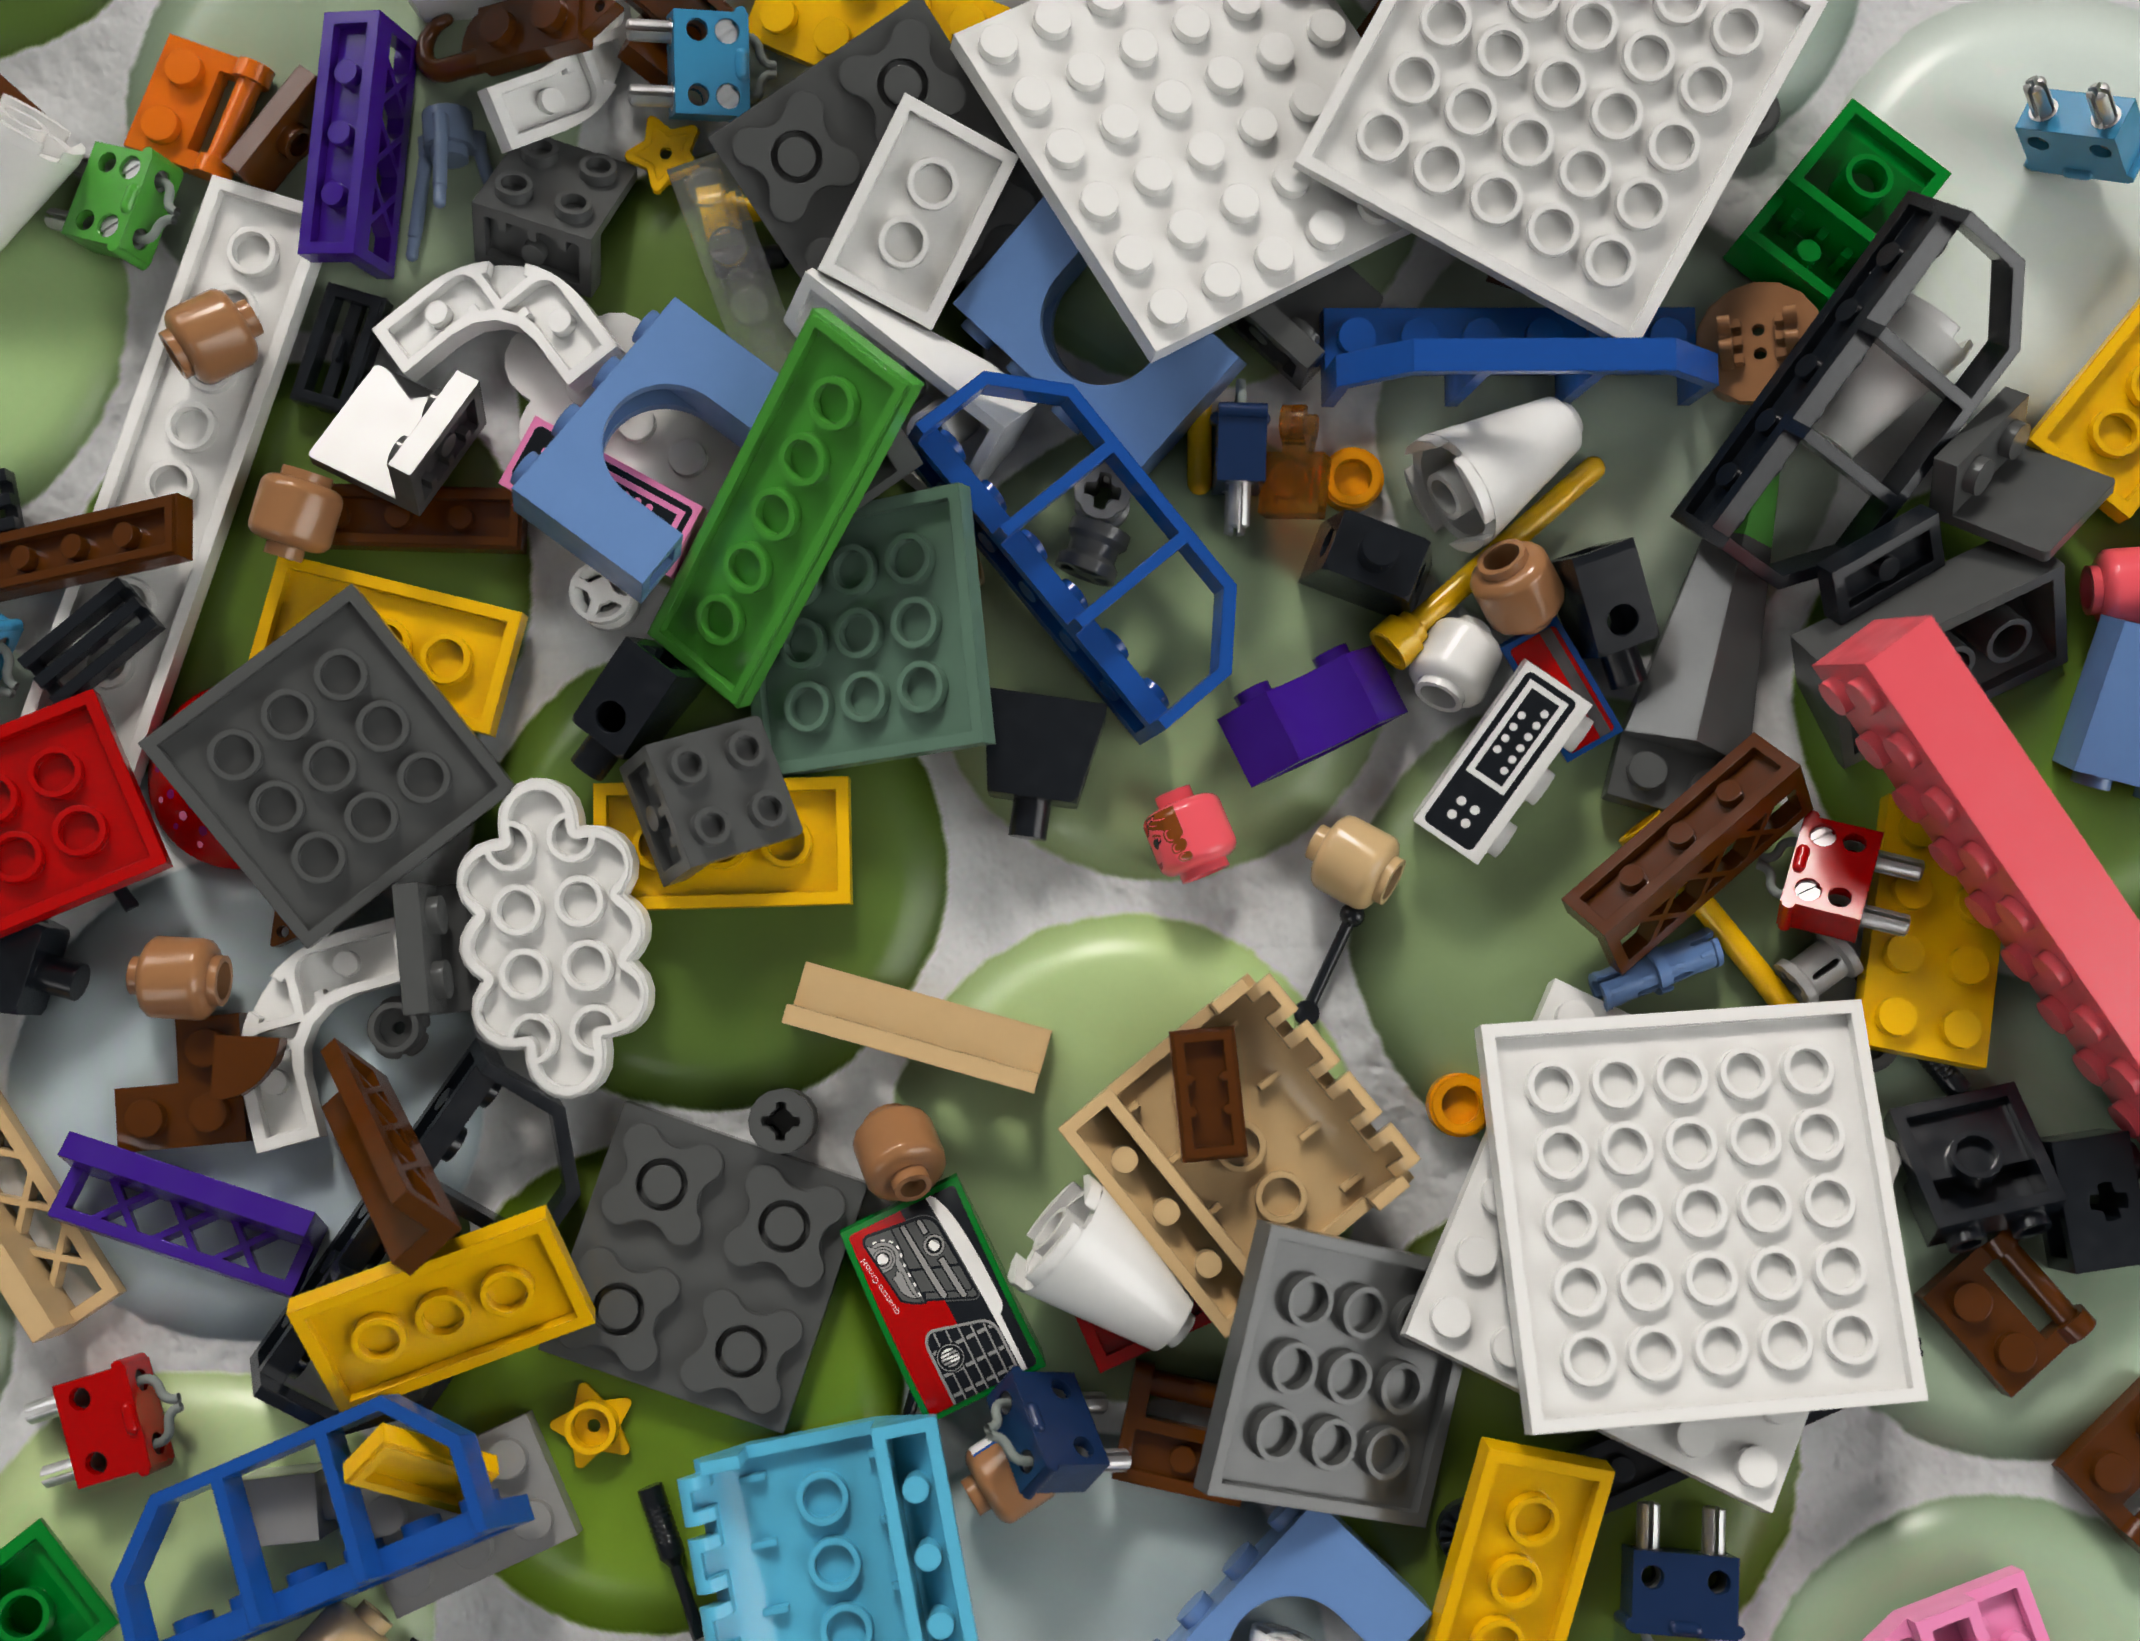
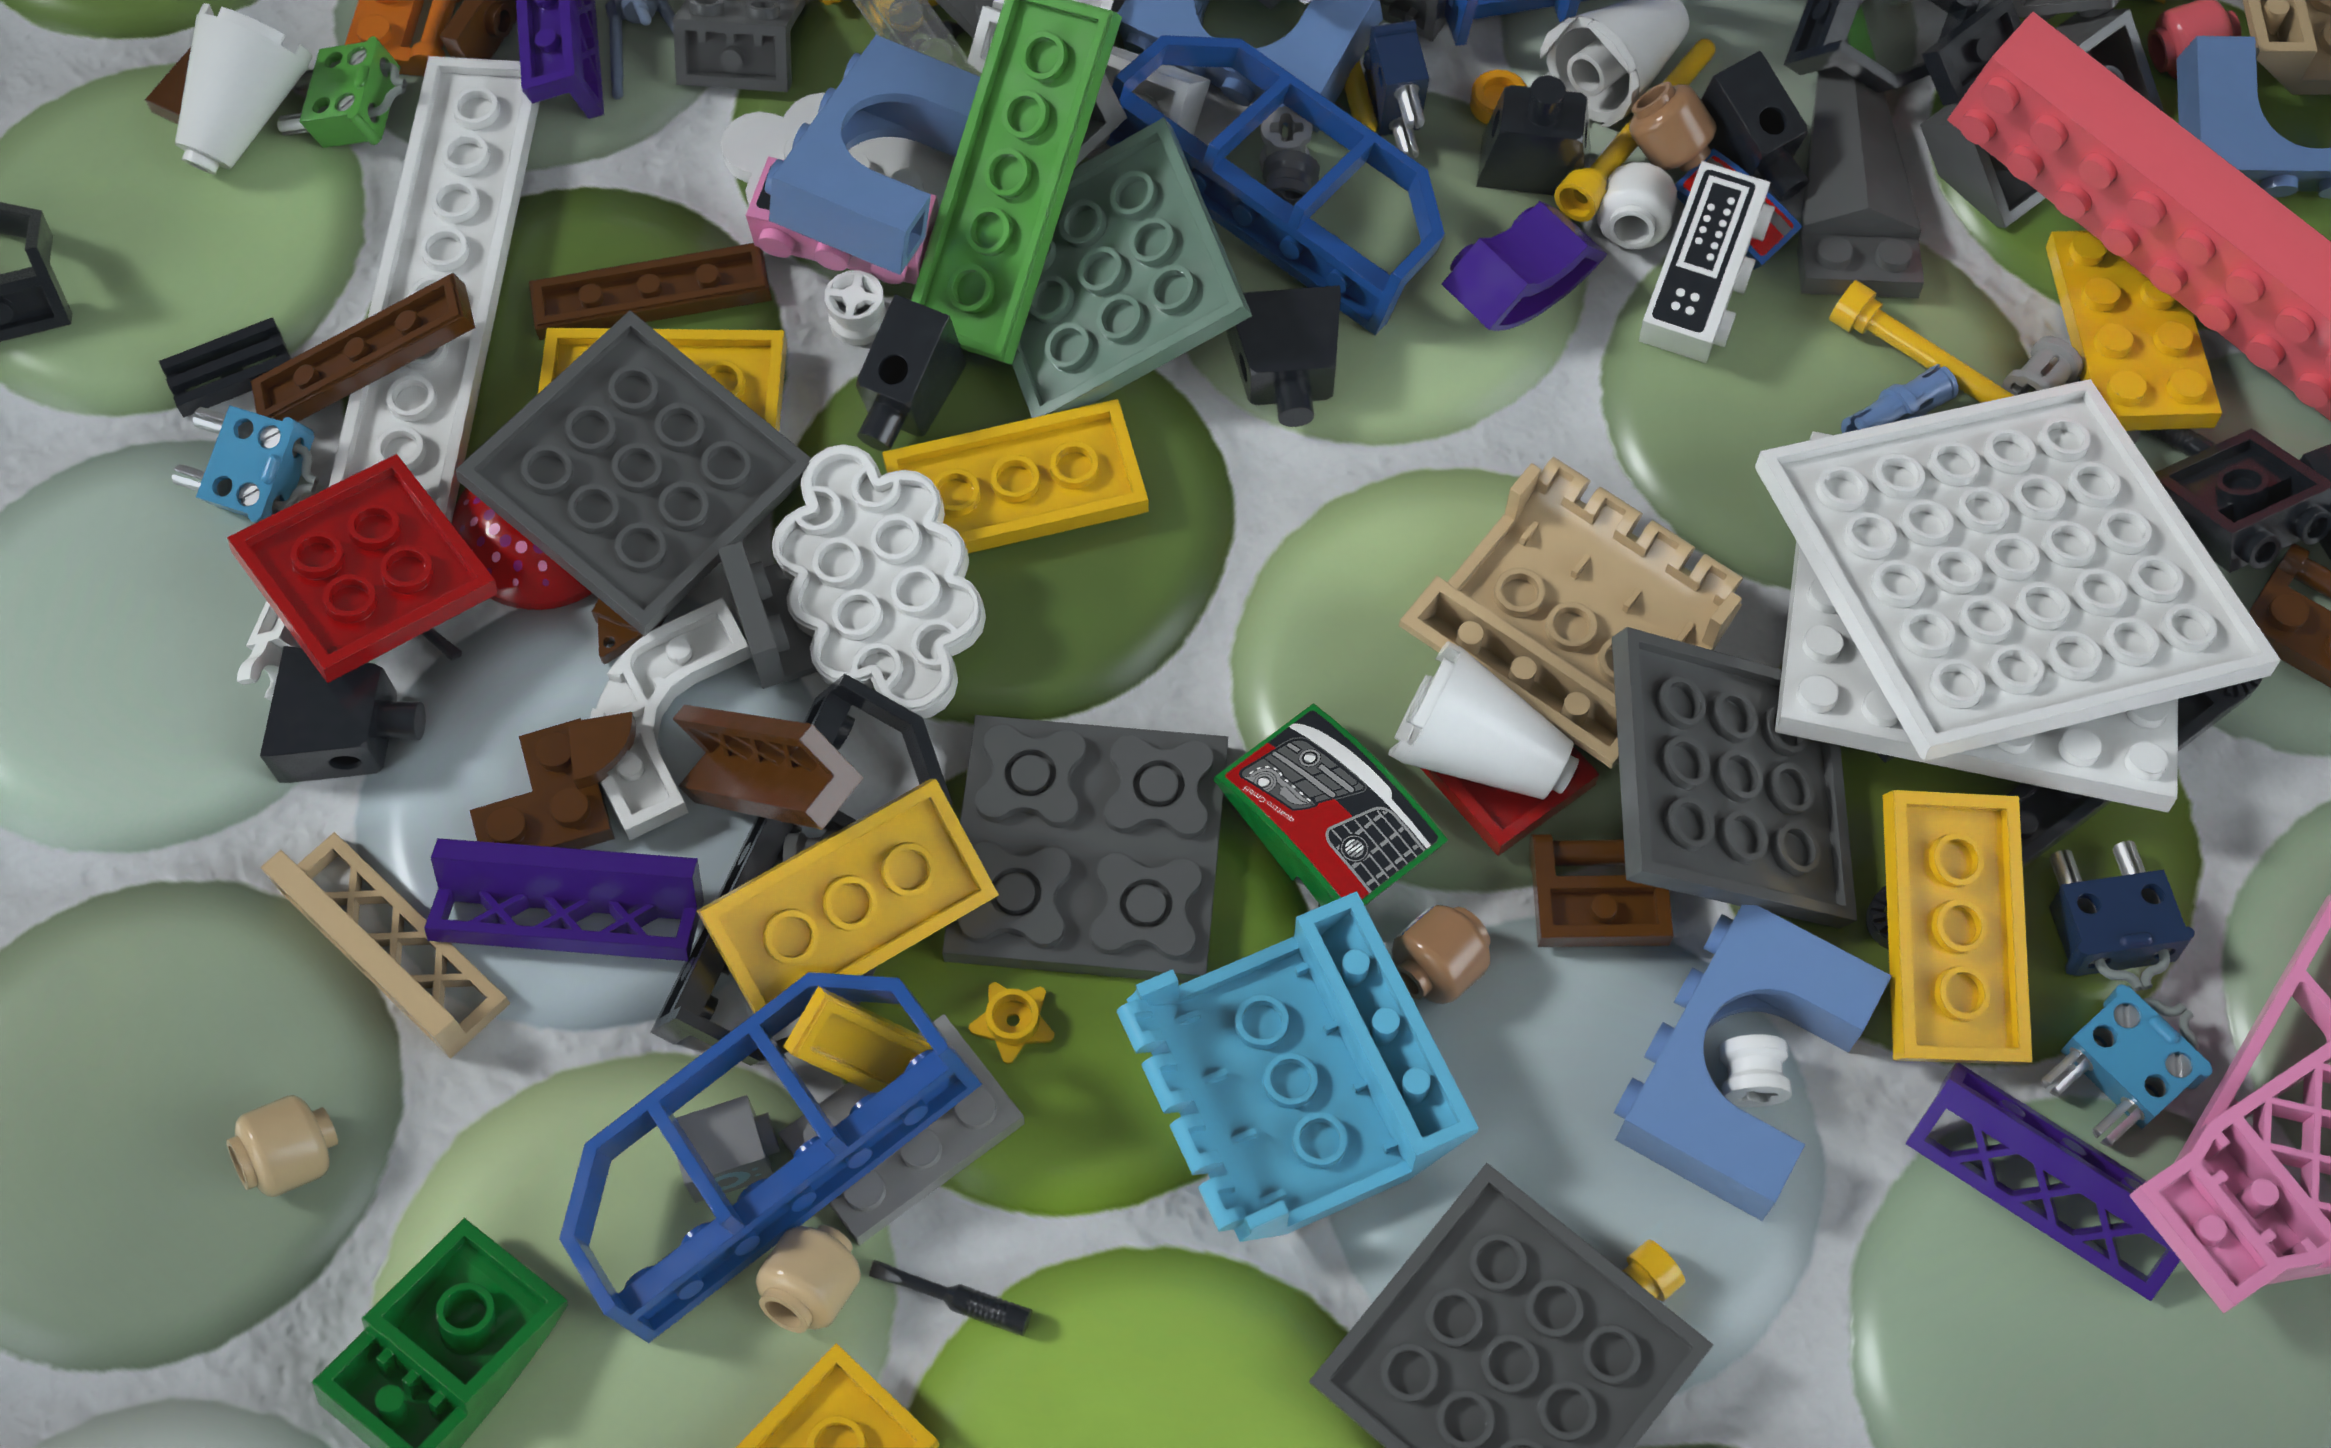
camera: 15 degrees left, 20 degrees down
(78, 624) = (378, 420): black tile -> none
(111, 1423) = (523, 1114): red piece -> none
(180, 978) = (519, 692): medium nougat head -> none
(211, 336) = (456, 161): medium nougat head -> none
(295, 513) = (560, 283): medium nougat head -> none
(319, 341) = (565, 211): black tile -> none
(385, 1039) = (739, 685): dark grey plate -> none
(402, 436) = (645, 219): bracket -> none
(494, 299) = (689, 102): white plate -> none
(670, 1549) = (1120, 1116): black piece -> none
(709, 797) = (986, 426): dark grey bracket -> none
(795, 1110) = (1132, 710): dark grey wheel -> none
(899, 1152) = (1252, 693): medium nougat head -> none
(919, 1027) = (1240, 599): tan fence -> none
(1050, 1432) = (1472, 887): dark blue piece -> none
(1189, 834) = (1444, 384): coral head -> none
(1208, 1094) = (1529, 574): reddish brown plate -> none
(1298, 475) = (1452, 97): clear orange plate -> none
(1308, 1008) = (1610, 427): black hinge -> none
(1355, 862) = (1600, 375): tan head -> none
(1456, 1105) = (1761, 559): light orange tile -> none
(1688, 846) = (1894, 280): reddish brown fence -> none
(1833, 878) = (2029, 294): red piece -> none

